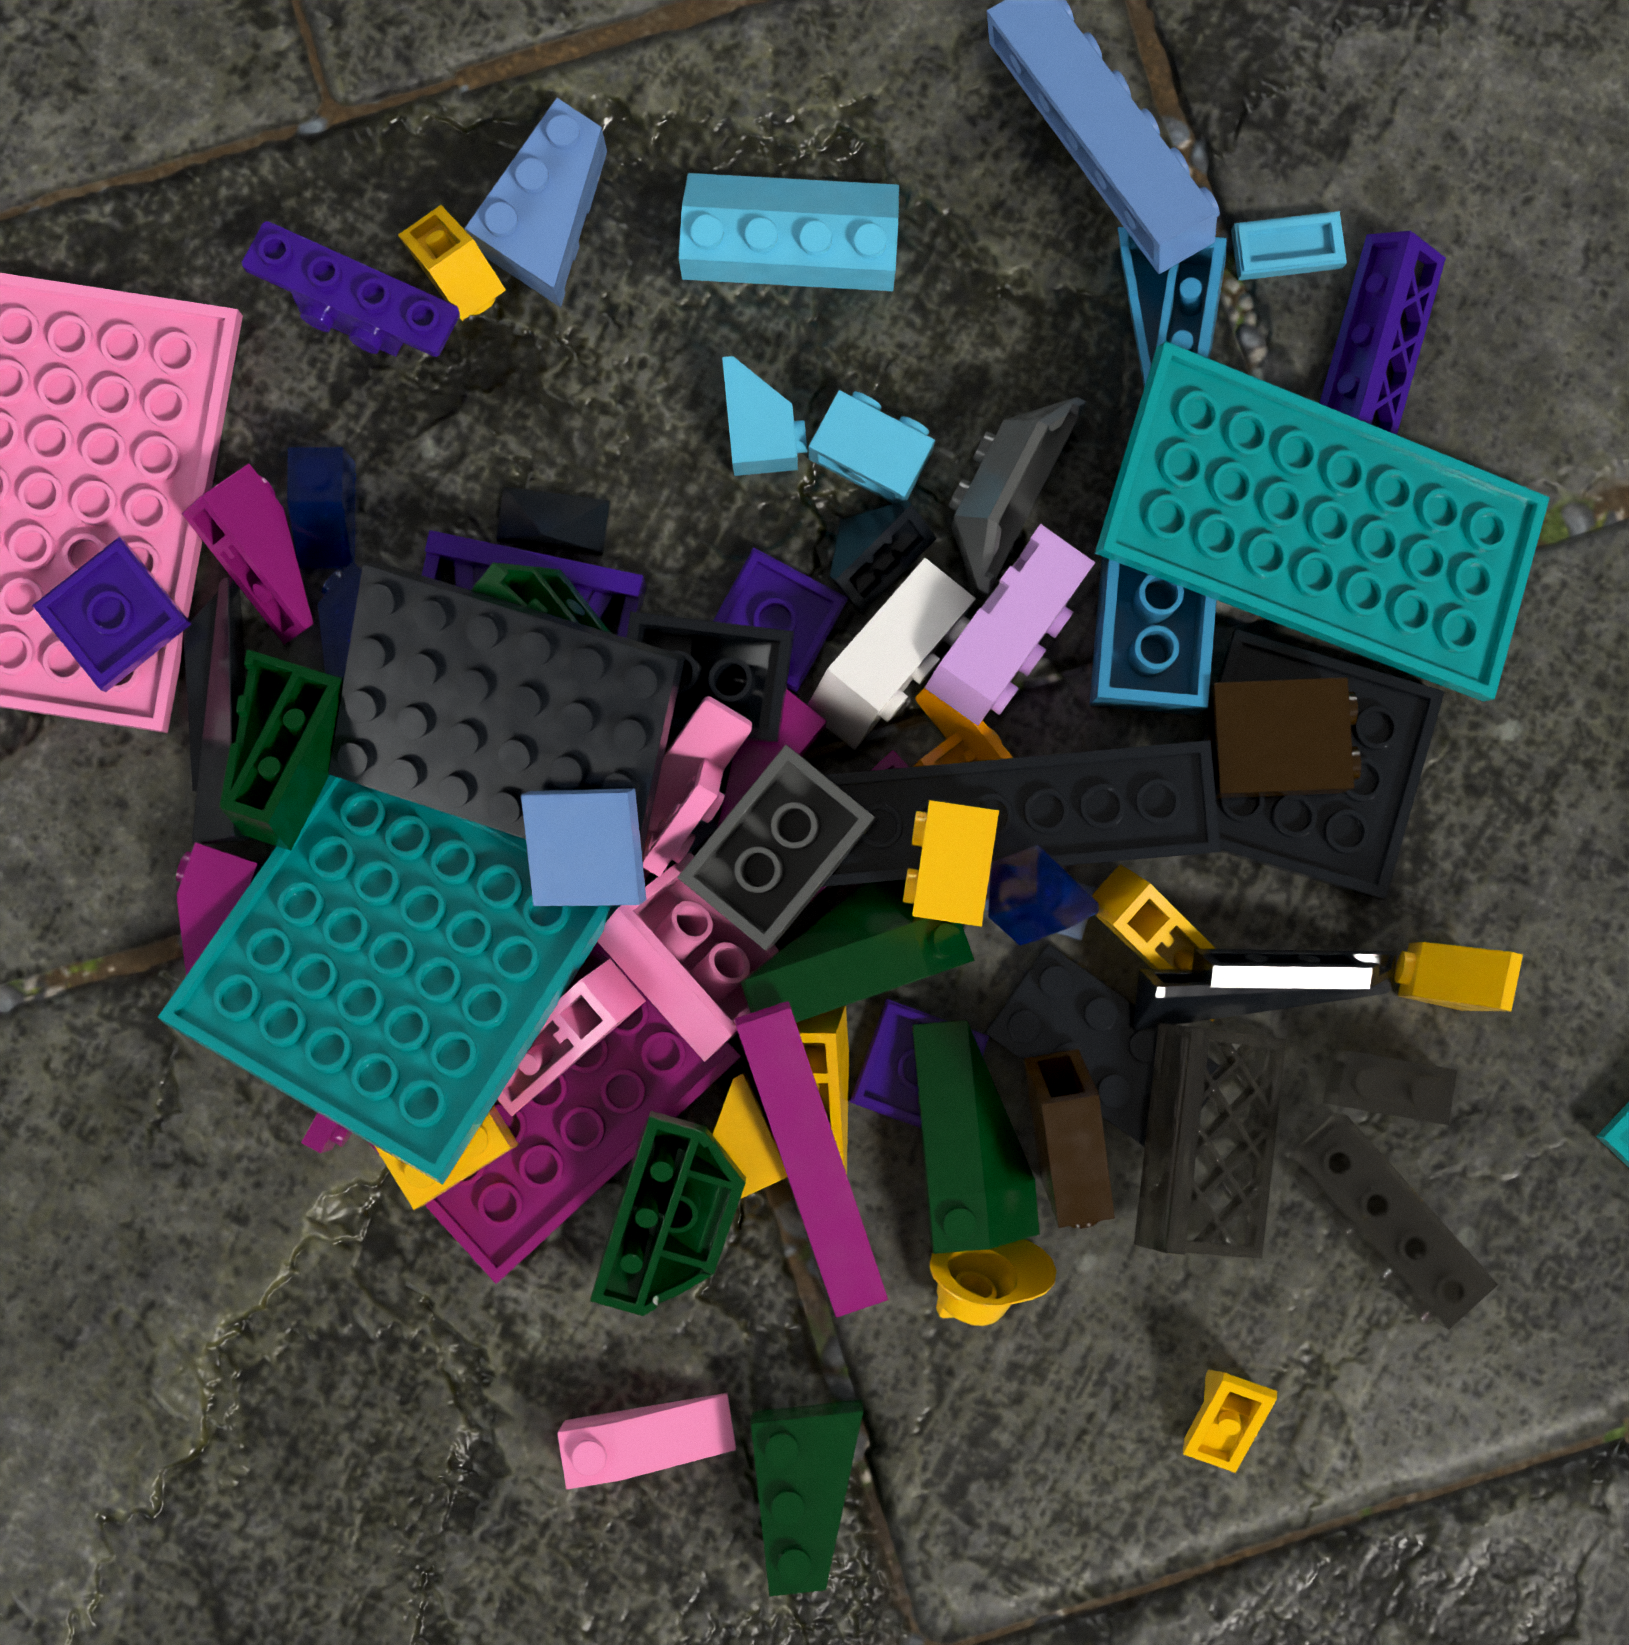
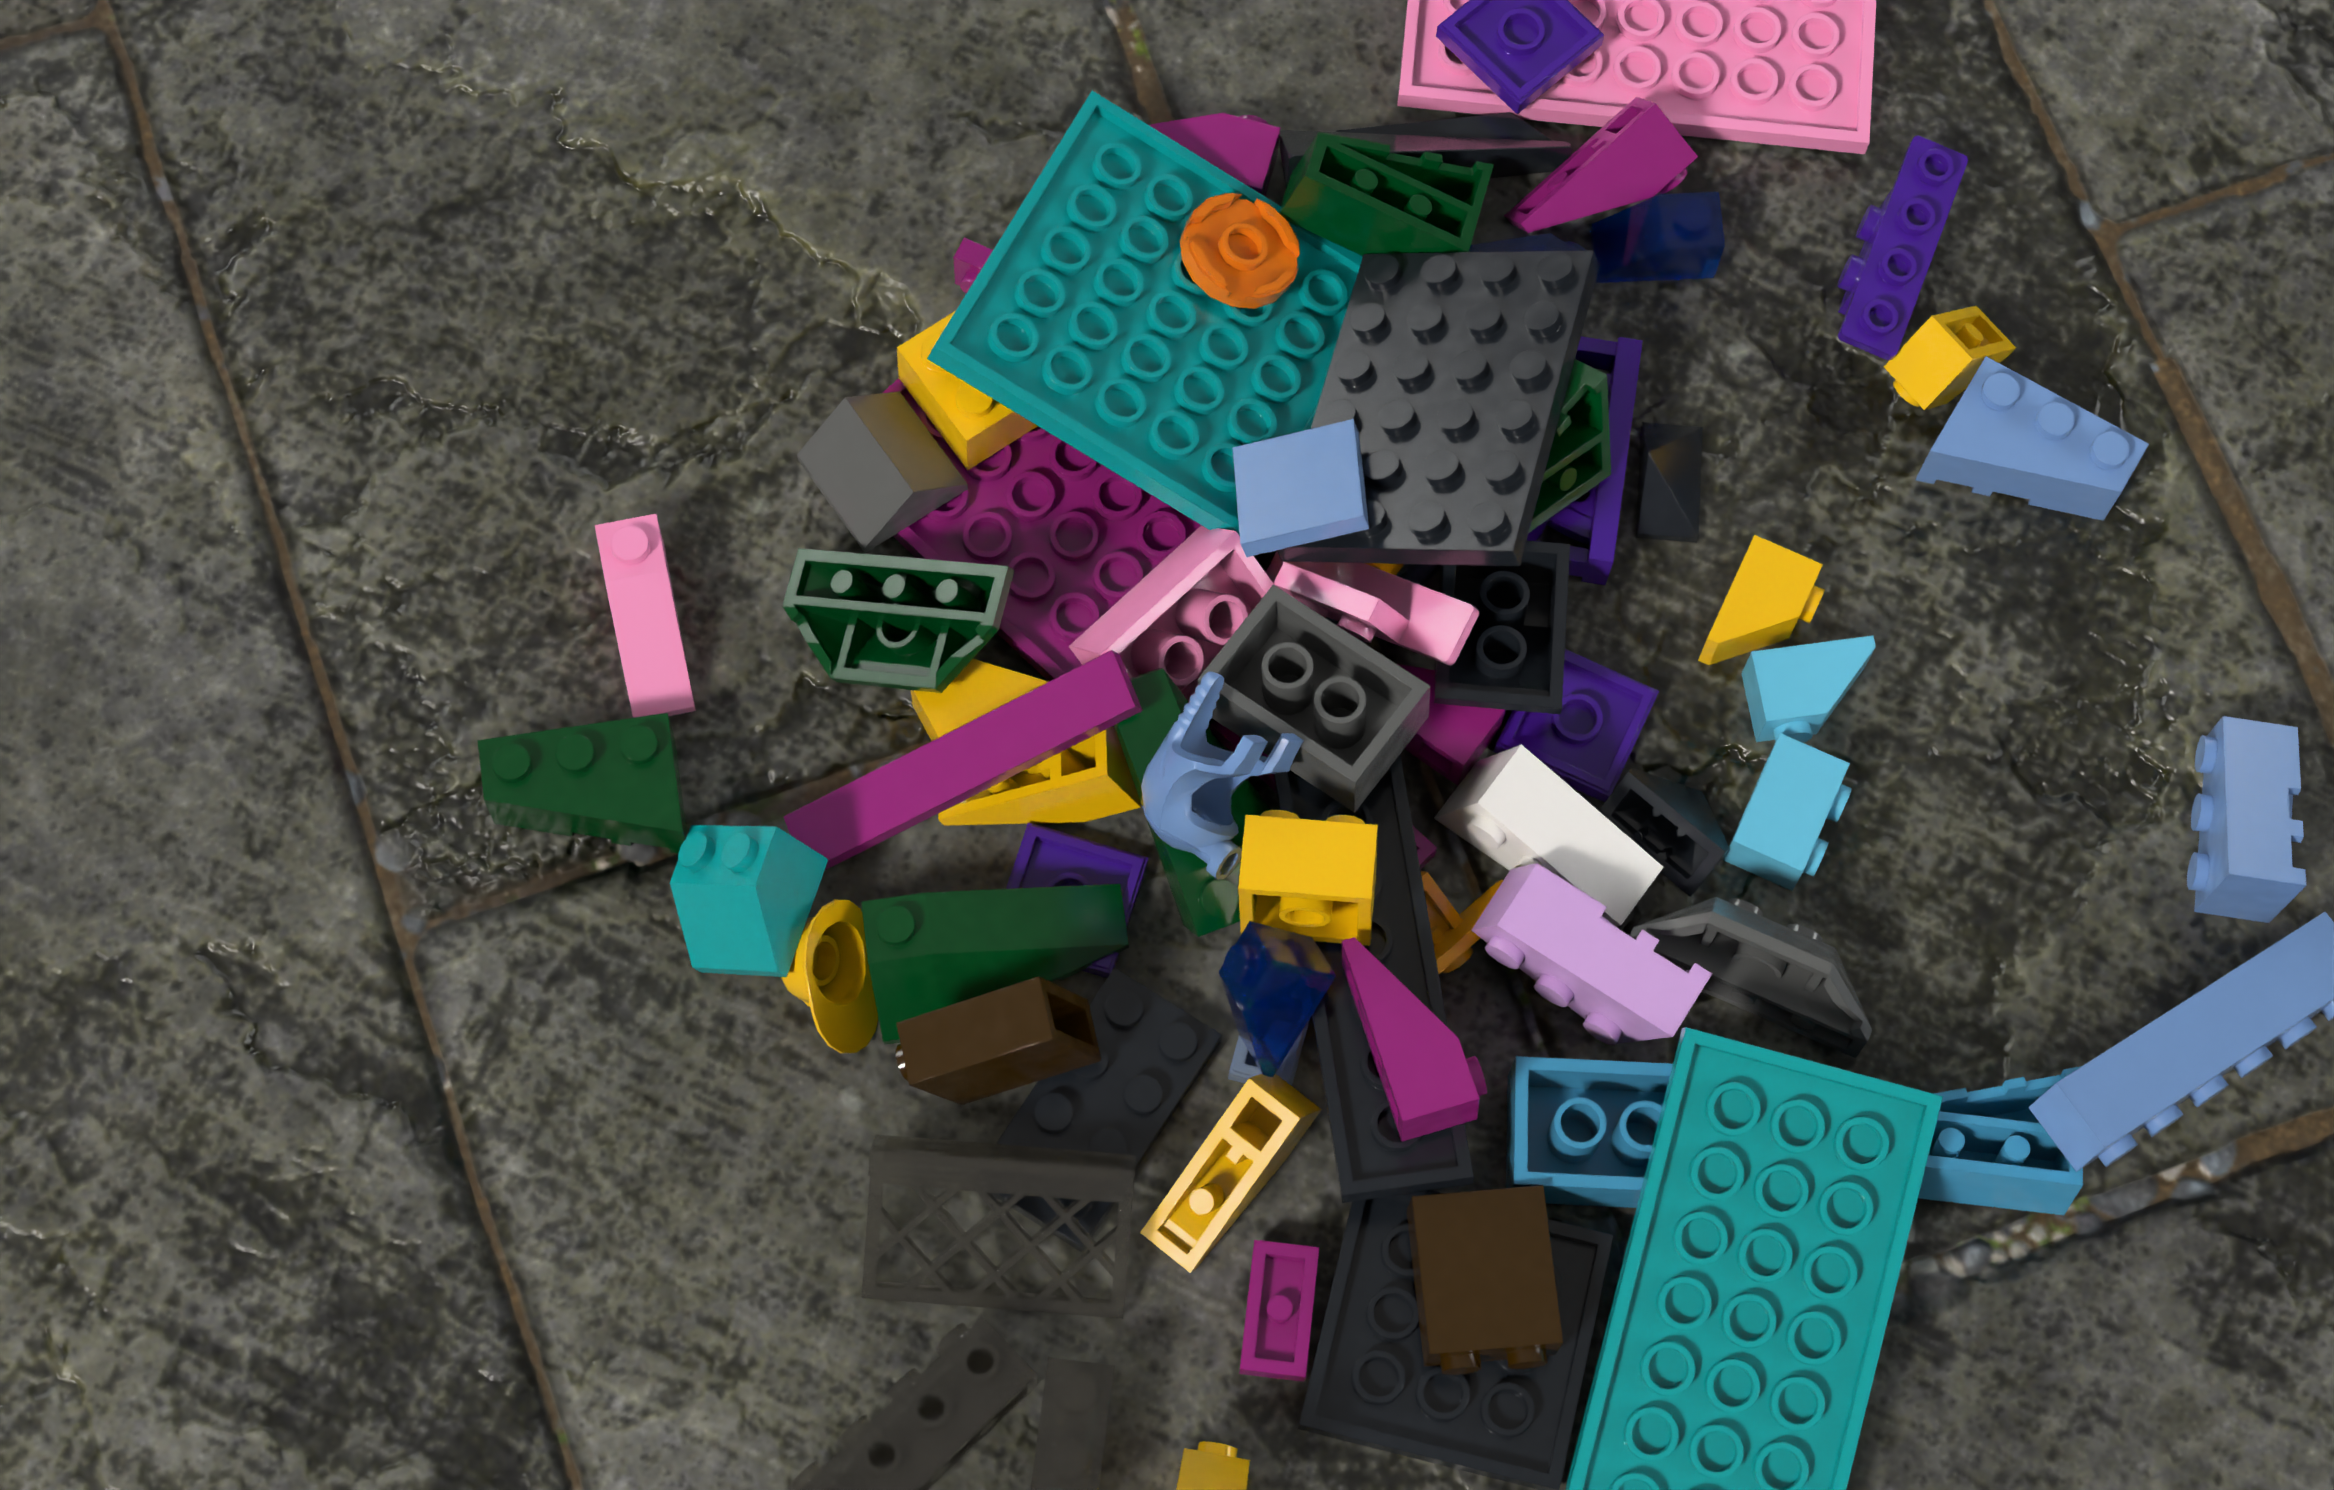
camera: 85 degrees right, 15 degrees down
(327, 887) = (1240, 251): none -> orange tile
(515, 1224) = (879, 467): none -> dark grey slope
(574, 1027) = (1103, 510): bright pink slope -> none
(676, 450) = (1763, 601): none -> yellow slope
(789, 232) = (2034, 713): medium azure slope -> none
(860, 961) = (1192, 781): none -> medium blue piece
(896, 64) = (2246, 820): none -> medium blue wedge
(922, 1355) = (744, 897): none -> teal slope
(1116, 780) = (1414, 1051): none -> magenta slope
(1228, 1420) = (673, 1252): yellow slope -> none
(1257, 981) = (1190, 1275): black wedge -> none
(1286, 909) = (1279, 1310): none -> magenta plate
(1288, 245) = (2093, 1295): medium azure tile -> none
(1373, 329) = (2005, 1392): dark purple fence -> none

